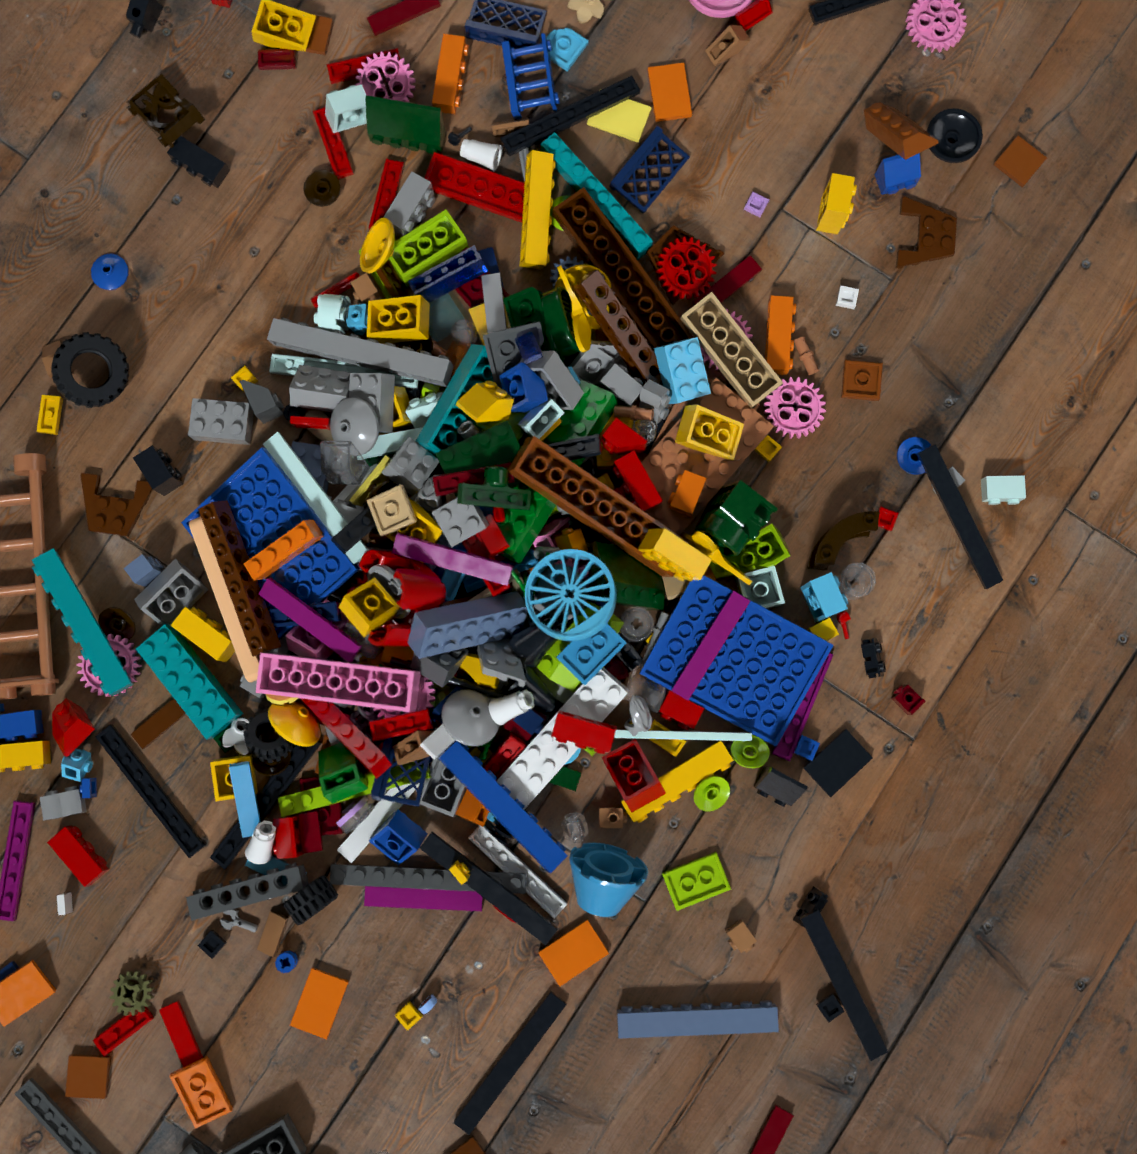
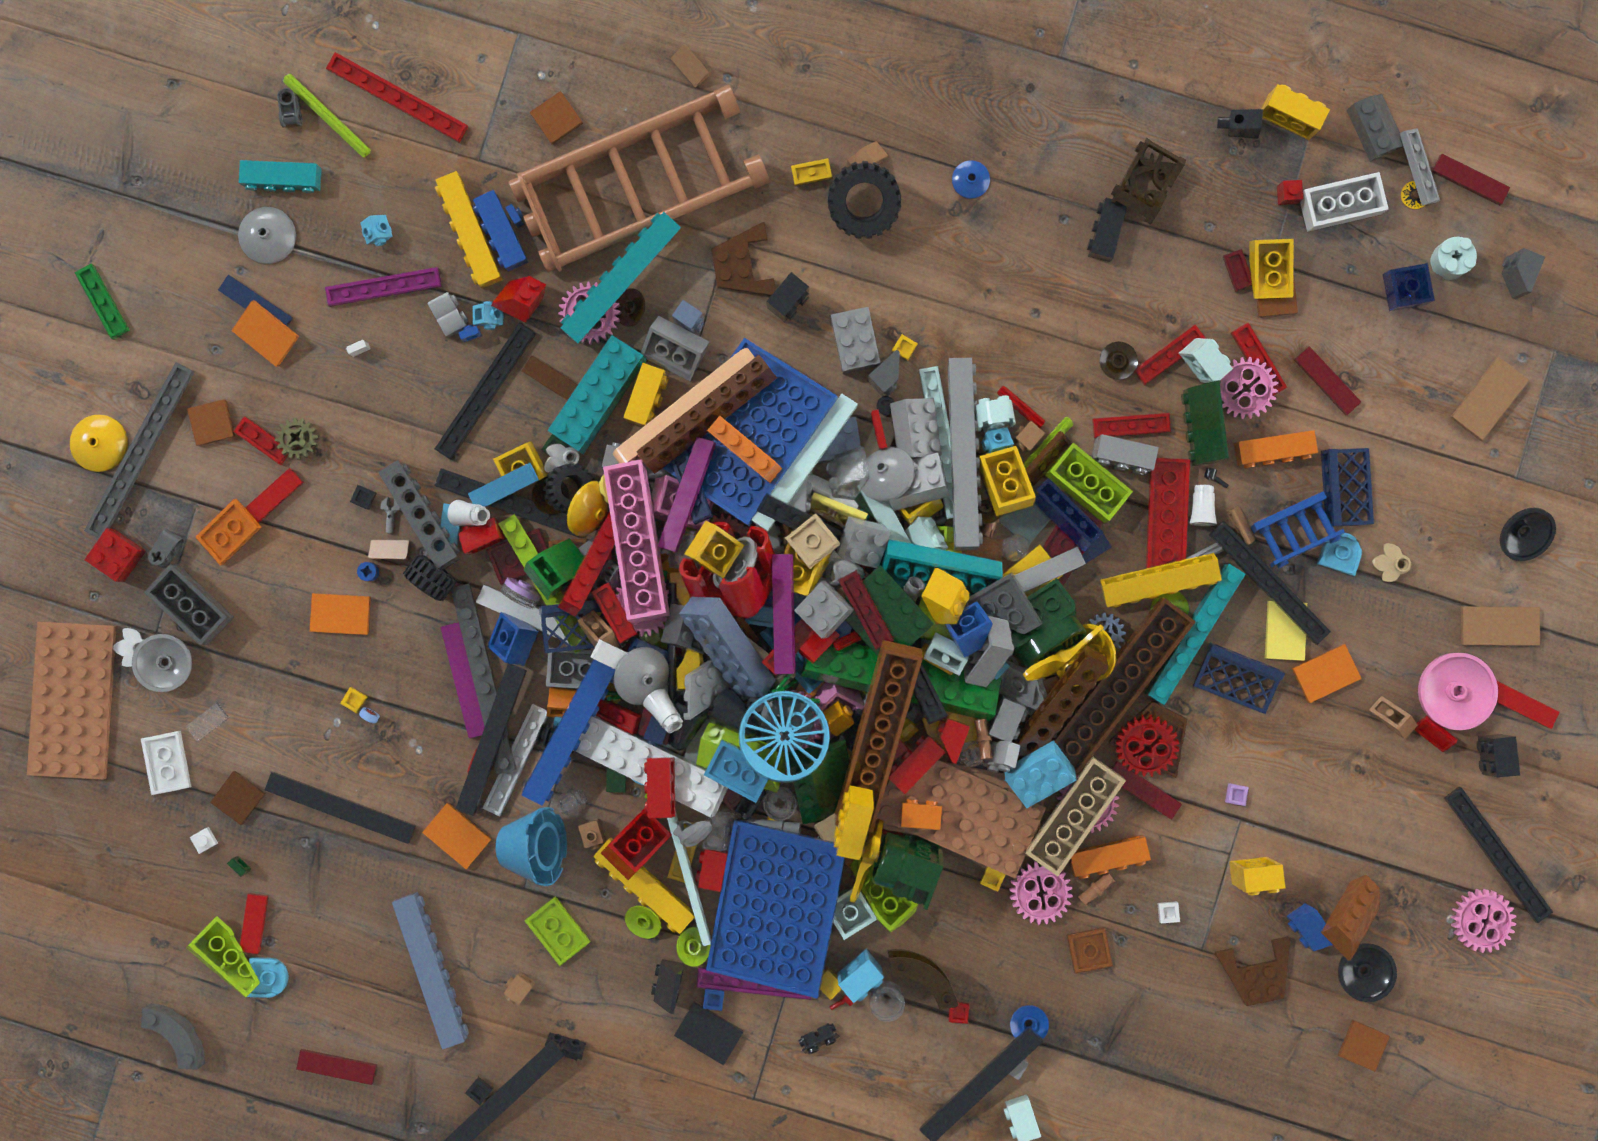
camera: 70 degrees right, 5 degrees up
(78, 855) = (405, 345): red brick -> none
(310, 832) = (492, 555): dark red tile -> none
(377, 246) = (1072, 438): yellow dish -> none
(460, 872) = (497, 709): yellow plate -> none
(494, 492) = (858, 635): dark green plate -> none
(528, 347) = (1011, 623): clear blue slope -> none
(540, 551) = (819, 692): light grey arm -> none
(709, 432) = (987, 818): yellow slope -> none
(710, 645) = (781, 881): magenta tile -> none
(908, 707) = (789, 1075): dark red brick -> none

